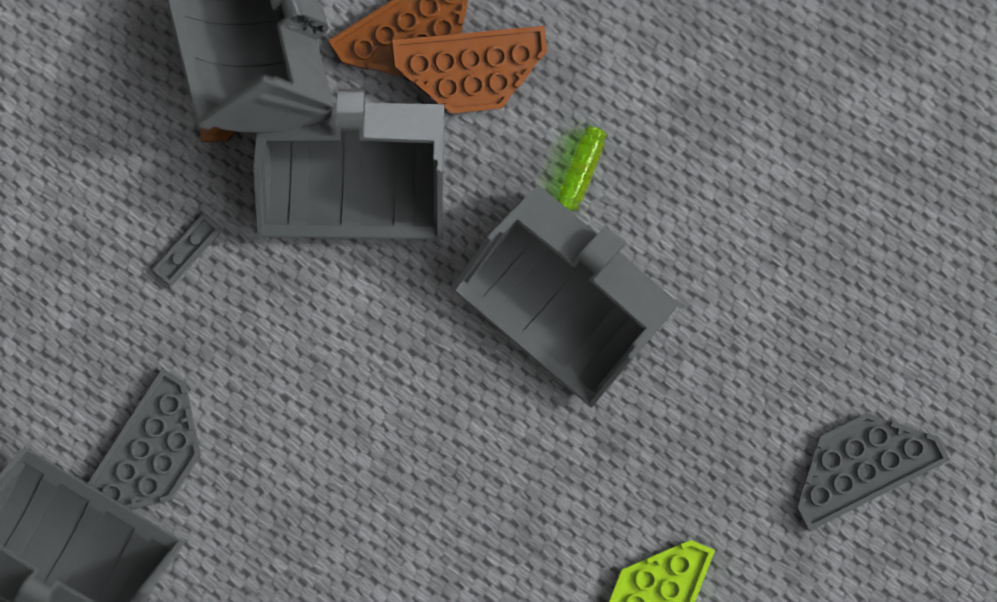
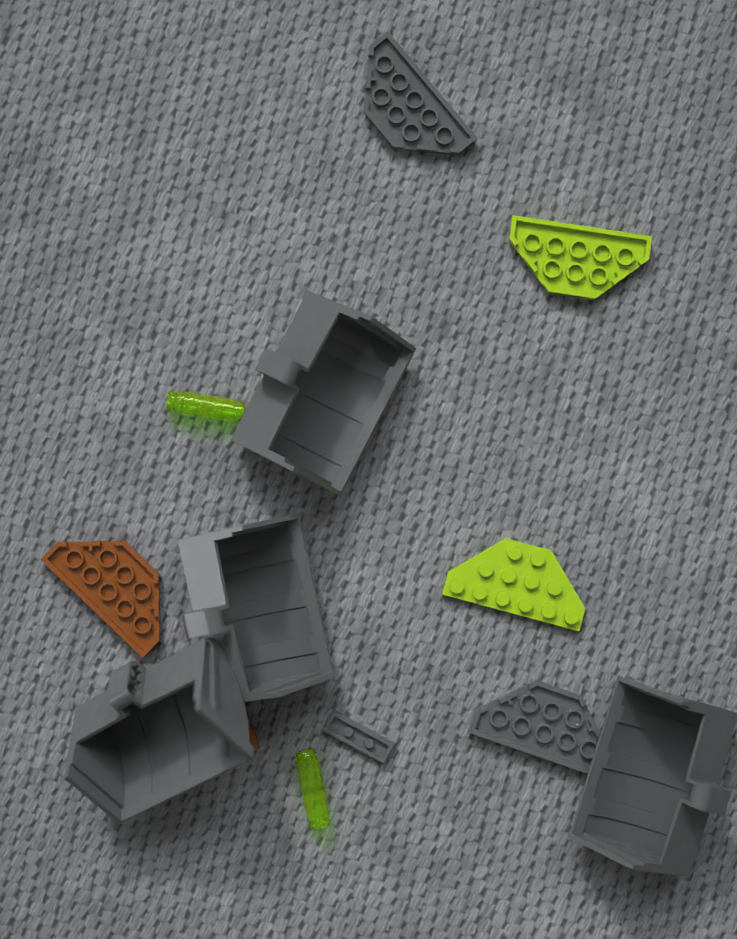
camera: 95 degrees left, 5 degrees up
(144, 187) = (312, 788): none -> clear neon green axle
(311, 462) = (518, 581): none -> lime plate
(470, 68) = (138, 525): dark orange plate -> none

